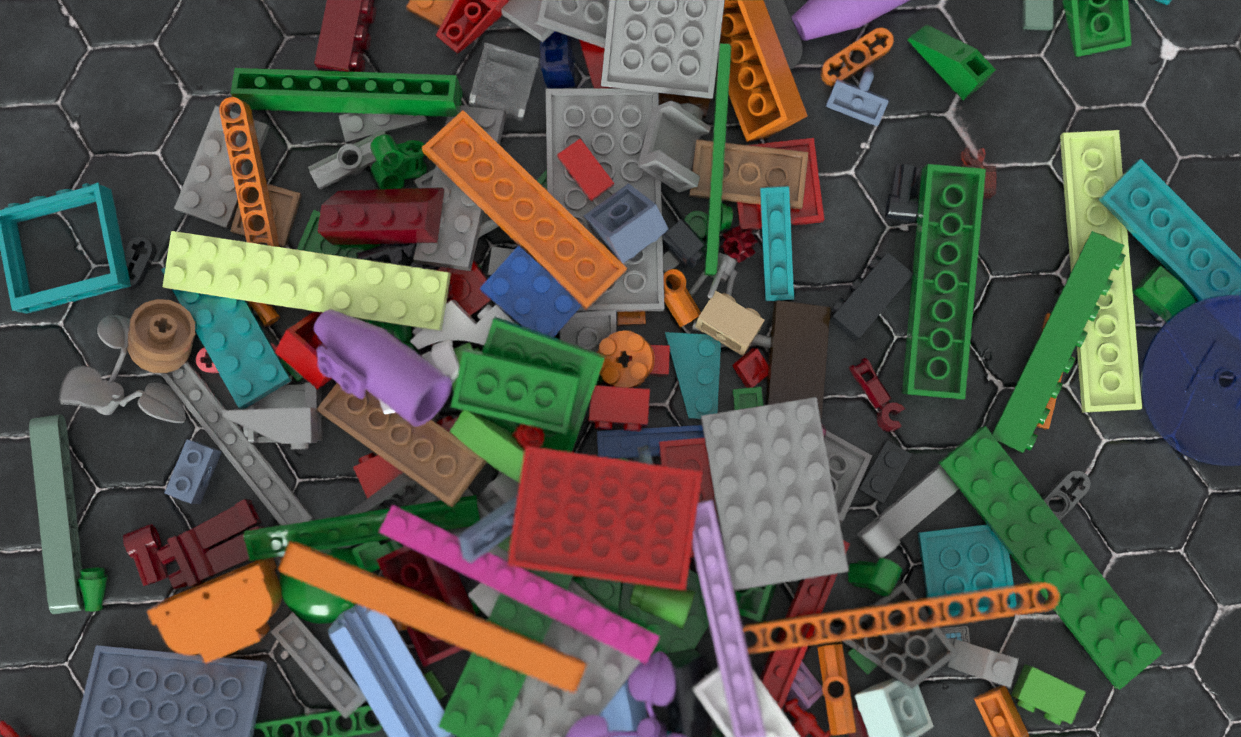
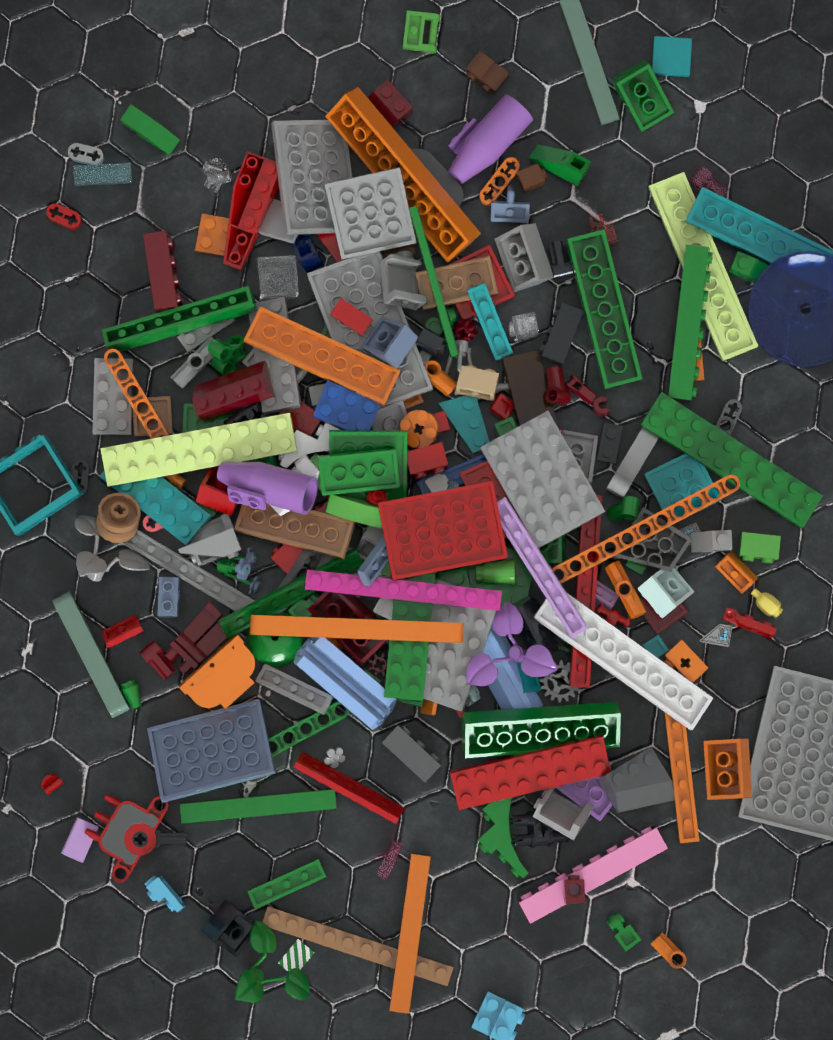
camera: 20 degrees left, 0 degrees up
(111, 496) = (122, 631): none -> red plate
(305, 469) = (242, 569): none -> plant
(446, 678) = (374, 663): none -> dark red gear
(624, 445) = (437, 483): none -> white sticker
(821, 267) = (523, 326): none -> clear brick
(836, 374) = (556, 389): none -> dark red piece
(855, 171) = (524, 257): none -> light grey slope
(903, 66) = (531, 177): none -> reddish brown brick
(1145, 147) = (706, 179): none -> clear pink piece

